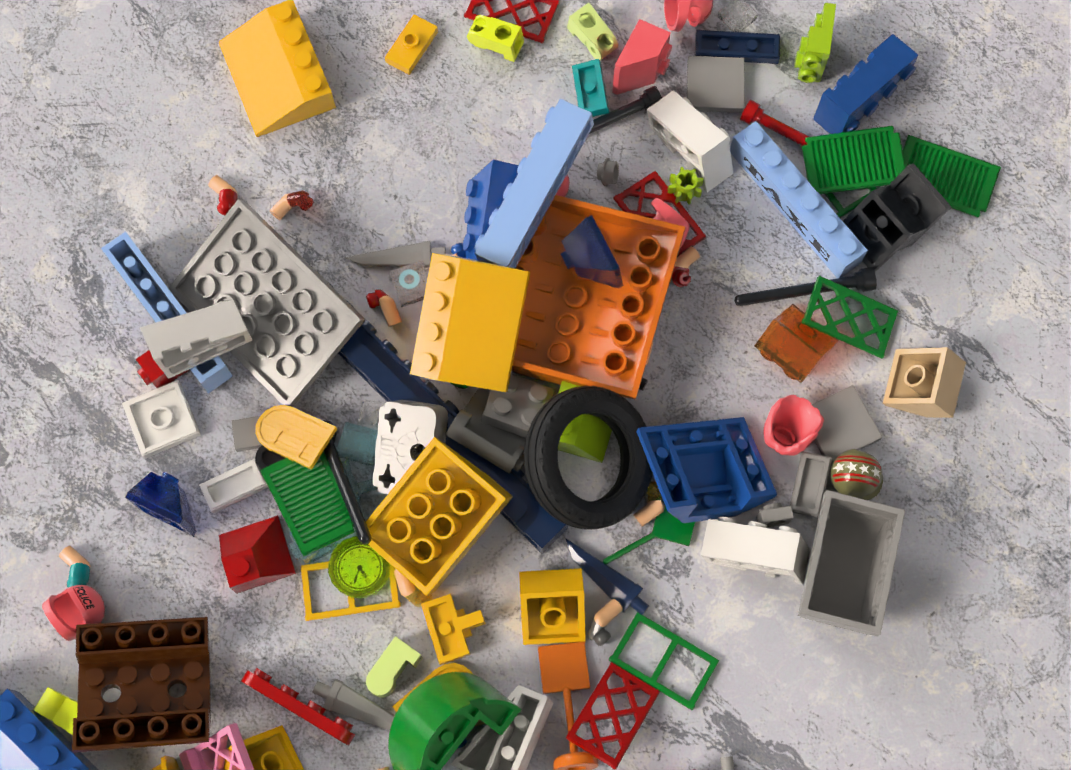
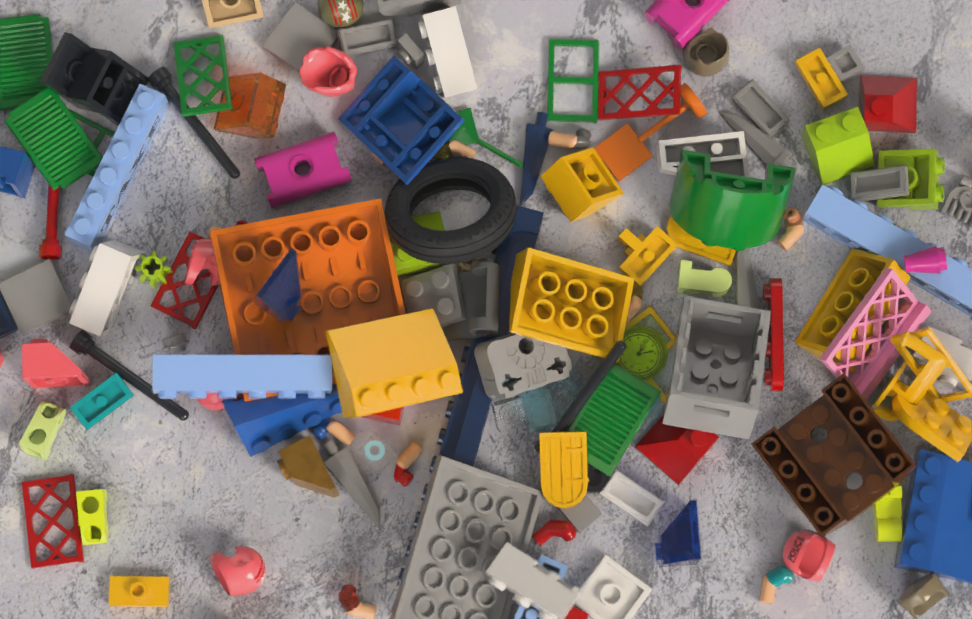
camera: 120 degrees left, 5 degrees up
(248, 402) = (555, 528): none -> red arm
(304, 659) = (739, 350): none -> light grey container
(372, 123) = (241, 572): none -> coral helmet
(425, 216) = (306, 468): none -> pearl gold slope
(703, 378) = (316, 153): none -> dark pink piece

